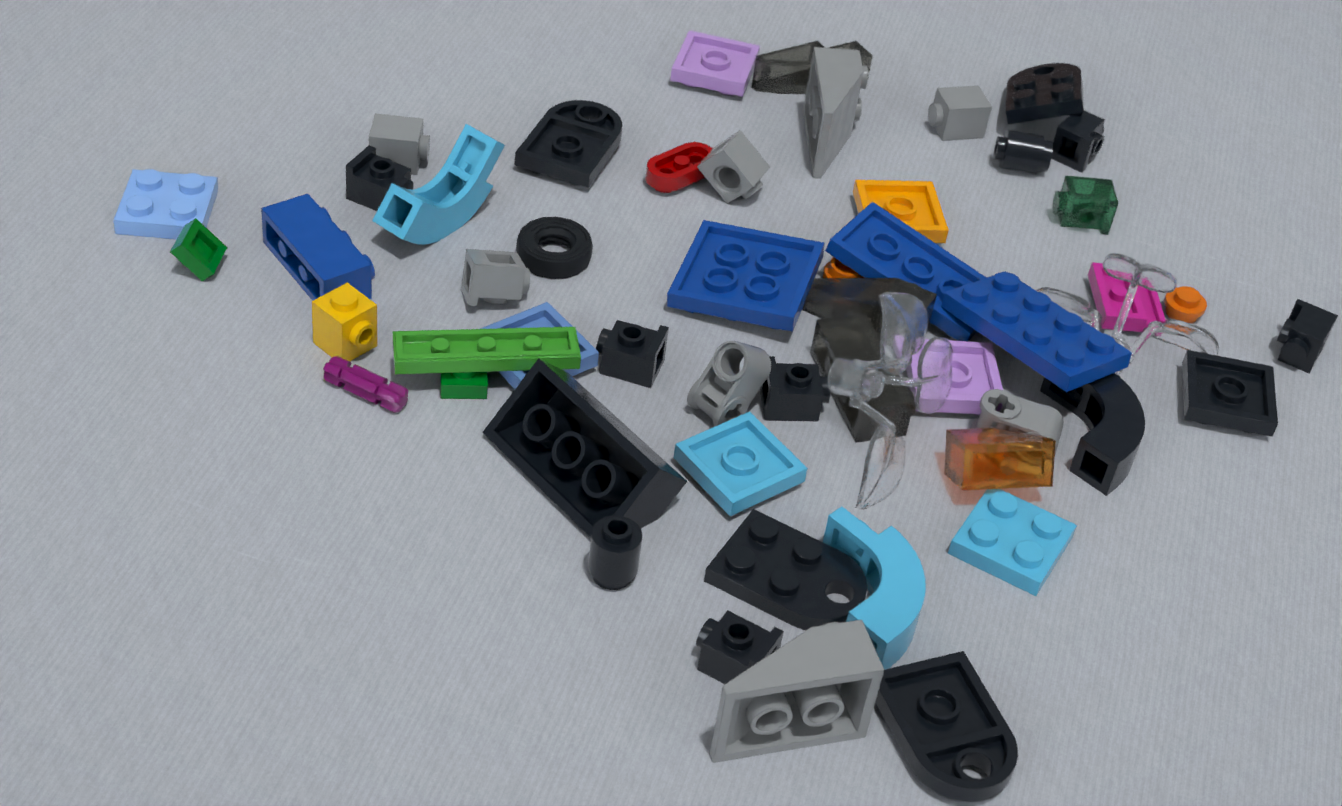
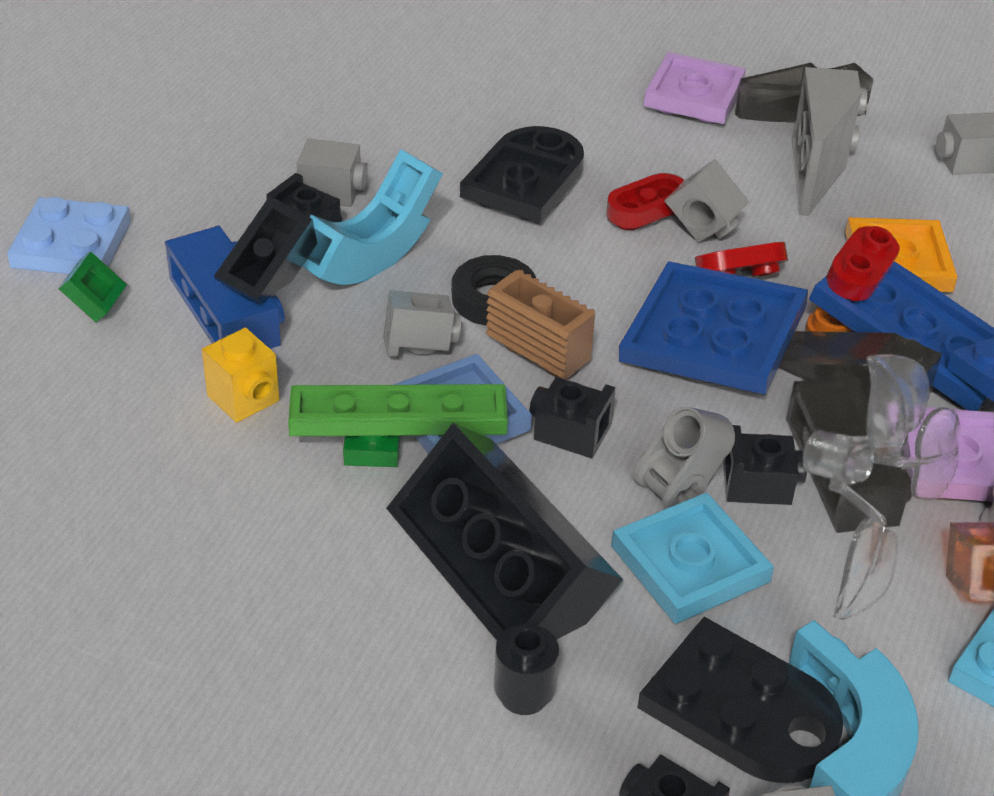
camera: 10 degrees right, 0 degrees up
(360, 216) = (269, 251): none -> black slope
(365, 384) = (257, 446): magenta axle -> none
(599, 275) = (540, 324): none -> medium nougat brick
(782, 217) = (761, 259): none -> red plate
(869, 219) = (862, 263): none -> red plate

